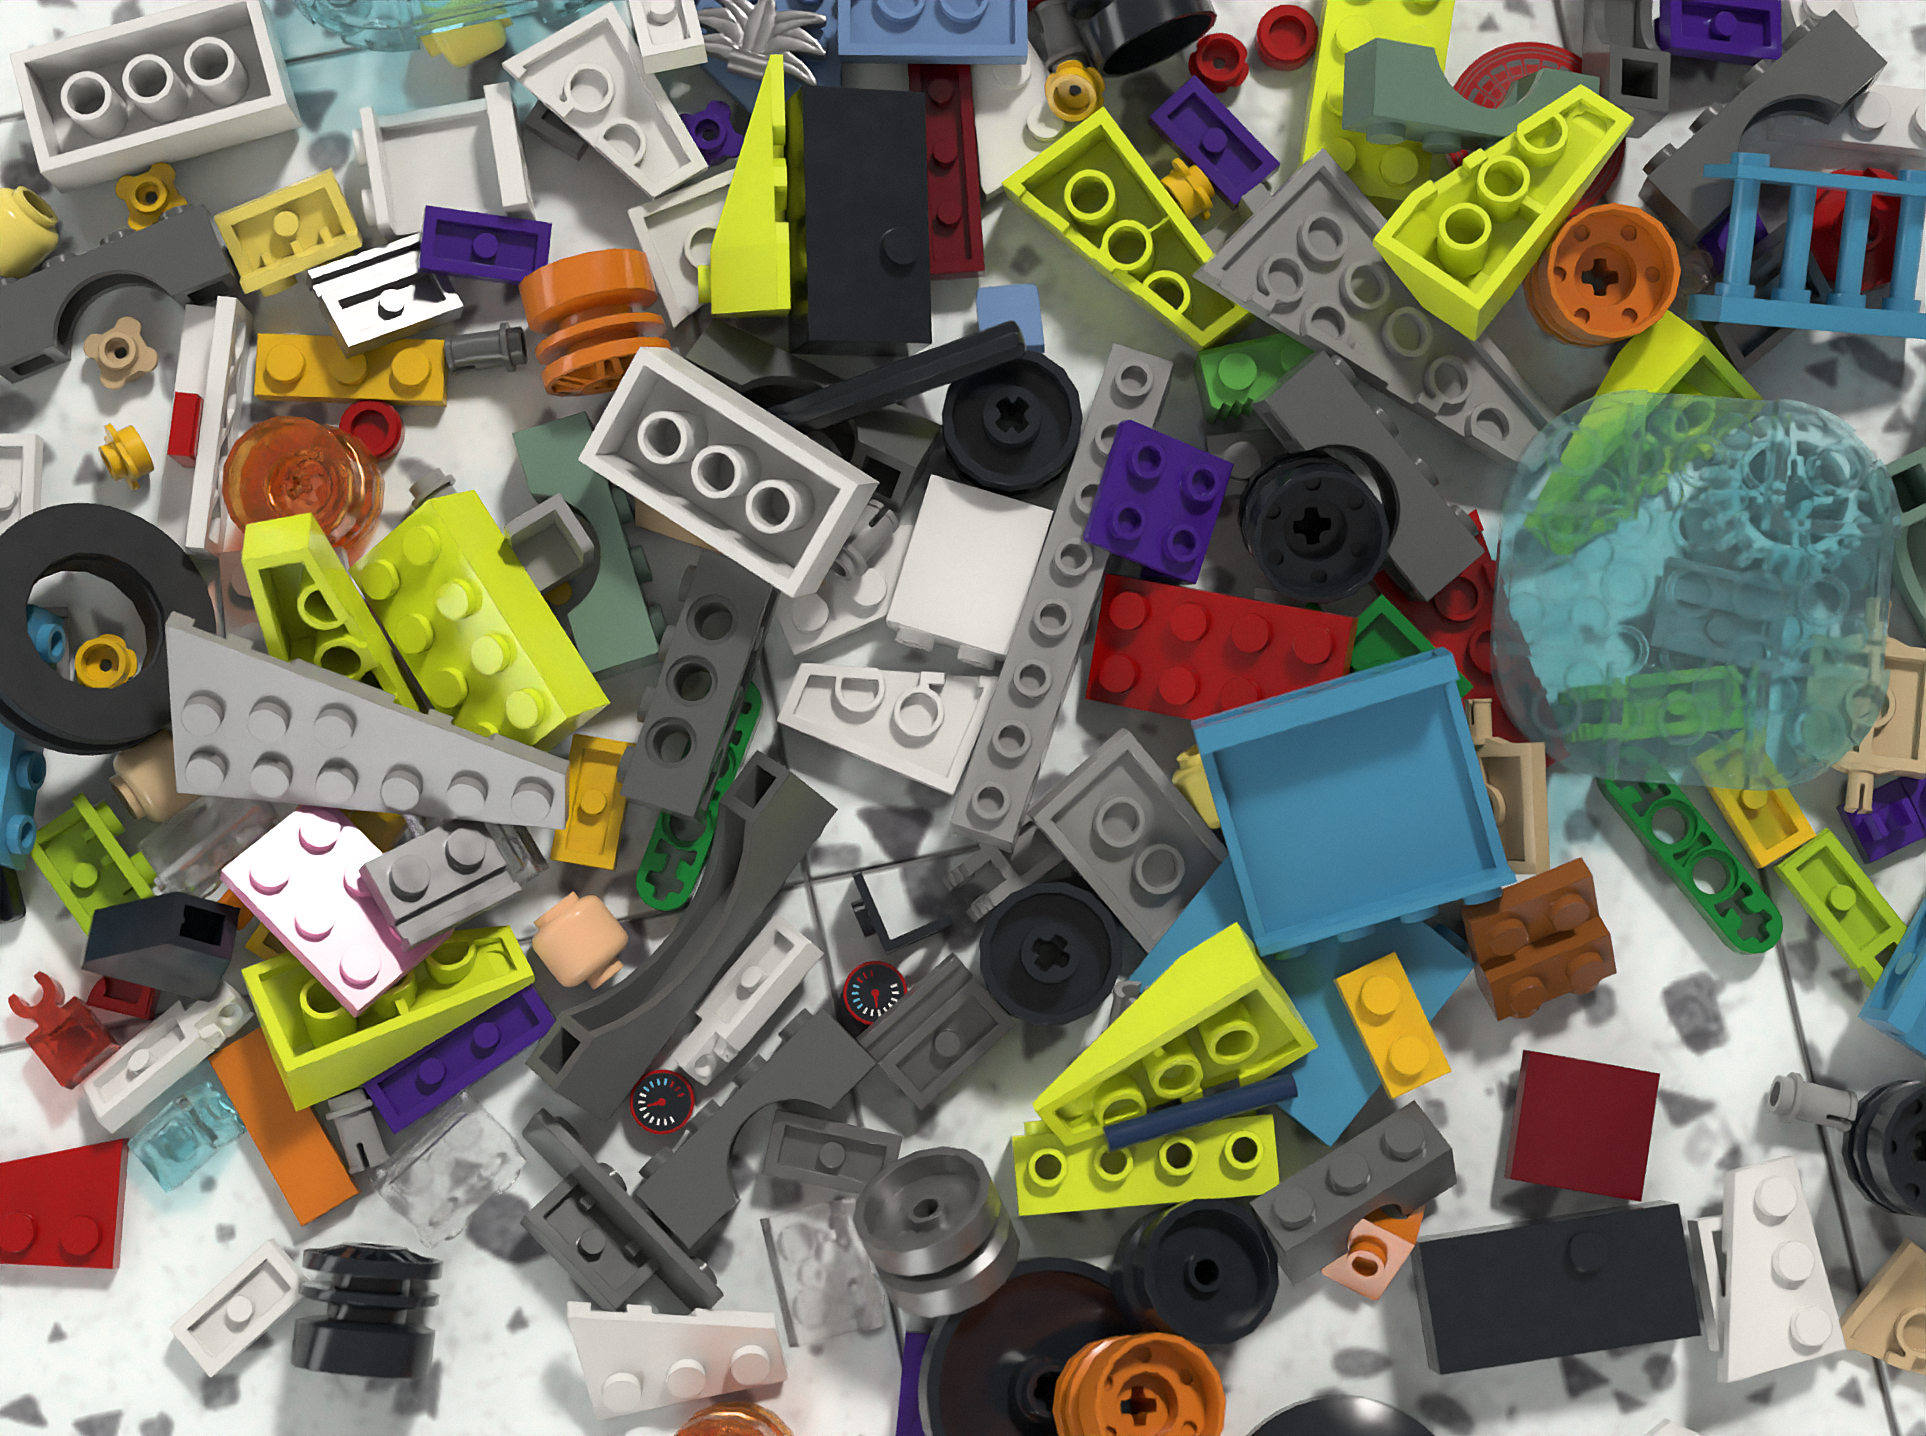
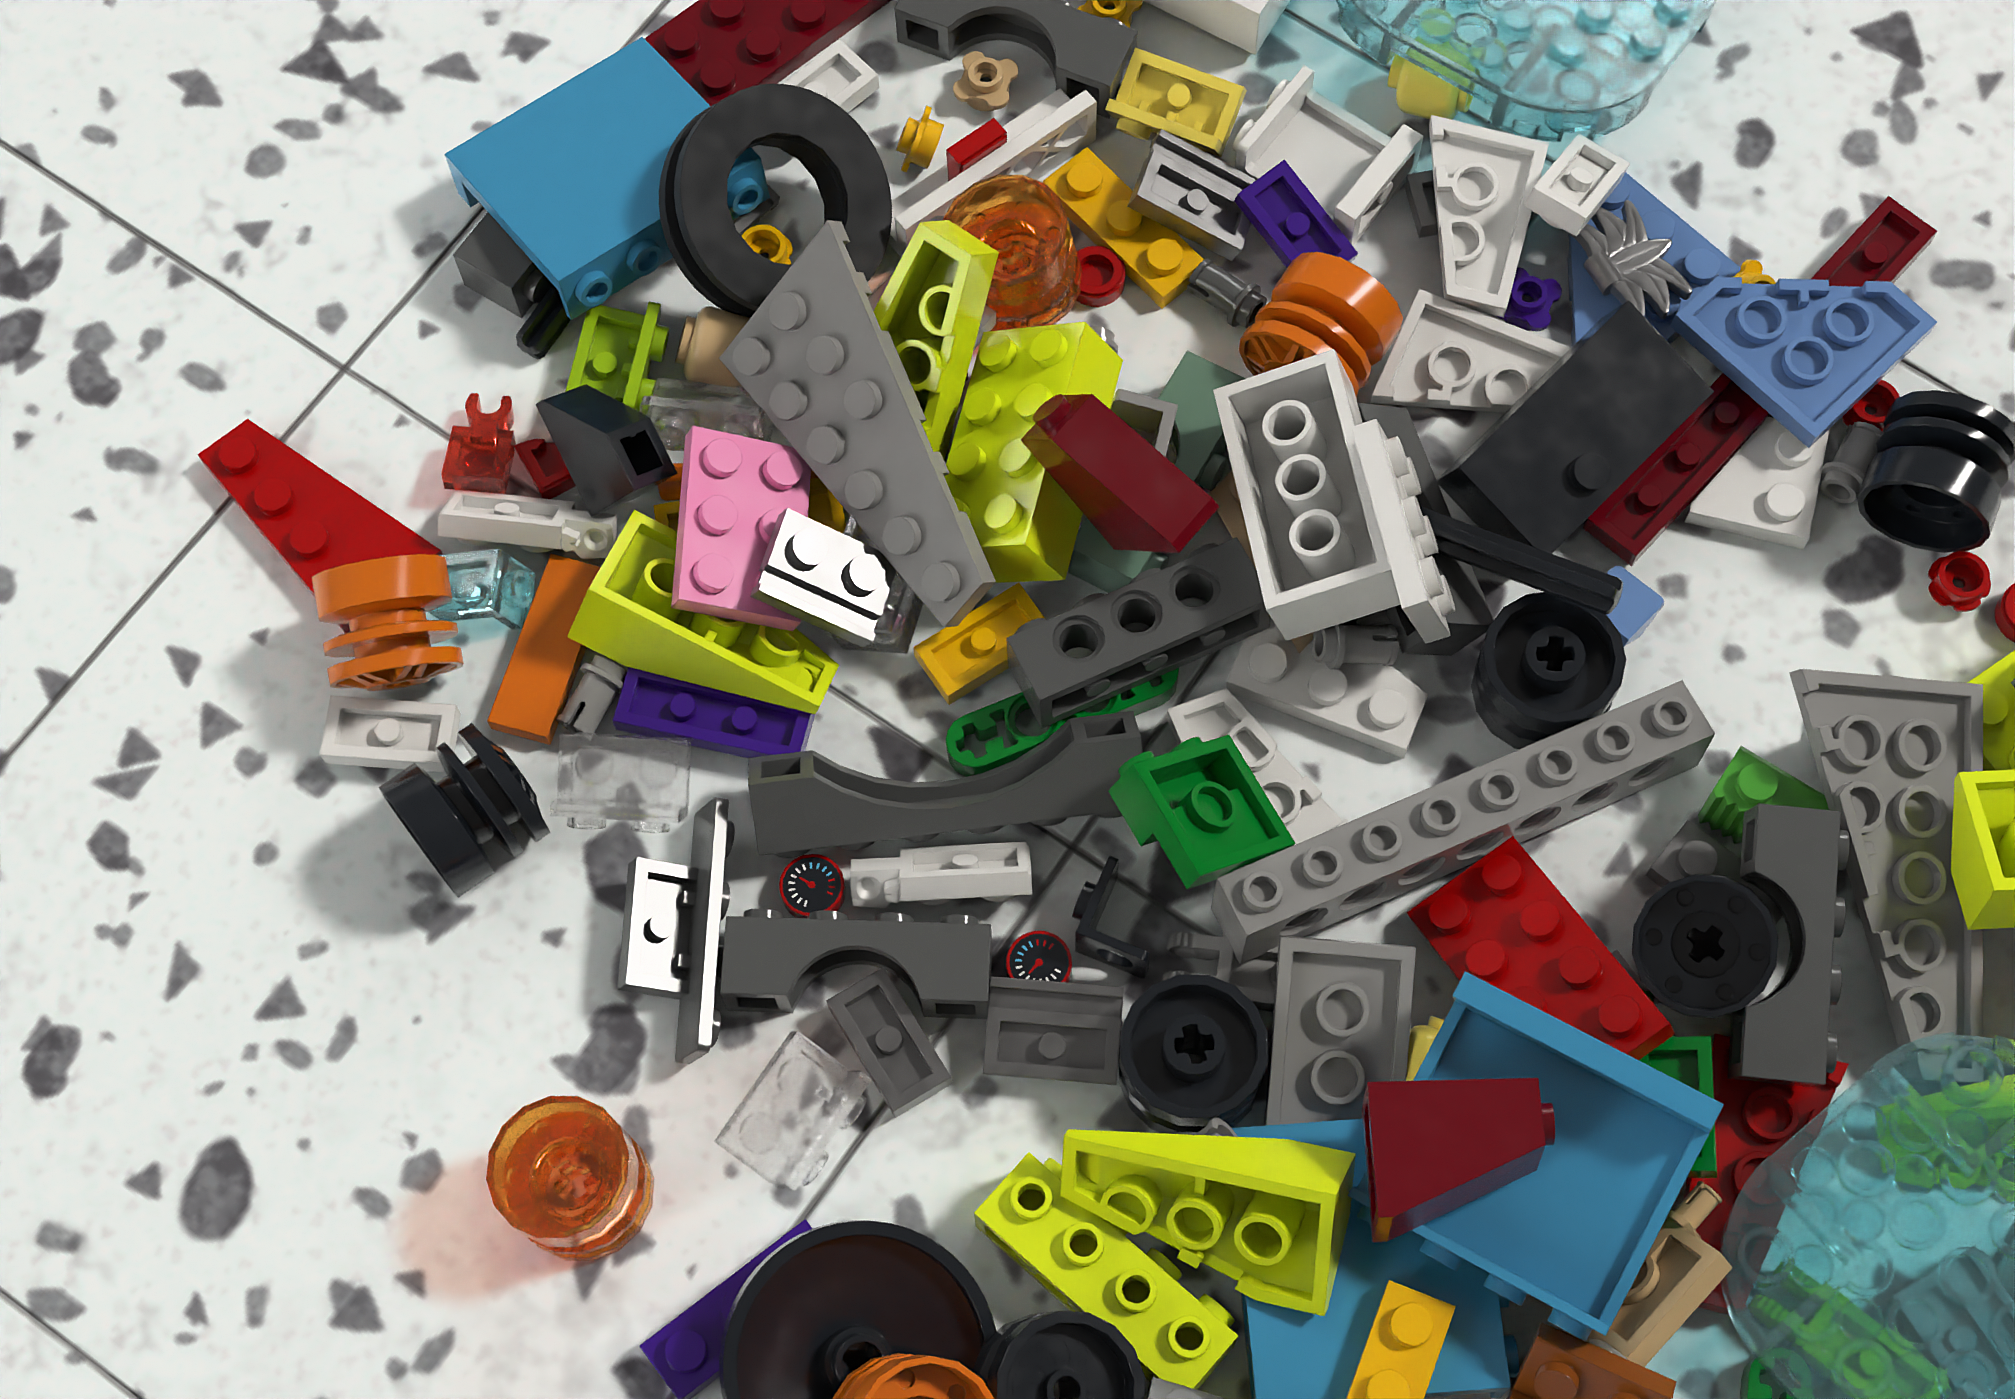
camera: 50 degrees right, 15 degrees down
(158, 1241) = (387, 621): none -> orange wheel
(580, 941) = (874, 719): light nougat head -> none
(583, 601) = (1117, 476): none -> dark red slope
(661, 1360) = (626, 1062): white wing -> none
(751, 241) = (1489, 374): neon yellow wedge -> none
(829, 439) = (1404, 530): none -> white plate
(886, 782) = (1200, 809): none -> green plate
(936, 1231) = (903, 1157): flat silver wheel -> none
(967, 571) = (1407, 733): white panel -> none
(1069, 105) = (1812, 496): yellow plate -> none
(1123, 222) = (1772, 614): neon yellow wedge -> none
(1157, 503) = (1602, 814): dark purple bracket -> none
(1189, 190) = (1845, 641): yellow plate -> none
(1200, 1112) = (1185, 1272): dark blue bar -> none
(1214, 141) = (1899, 622): dark purple plate -> none
(1295, 860) = (1447, 1145): none -> dark red slope

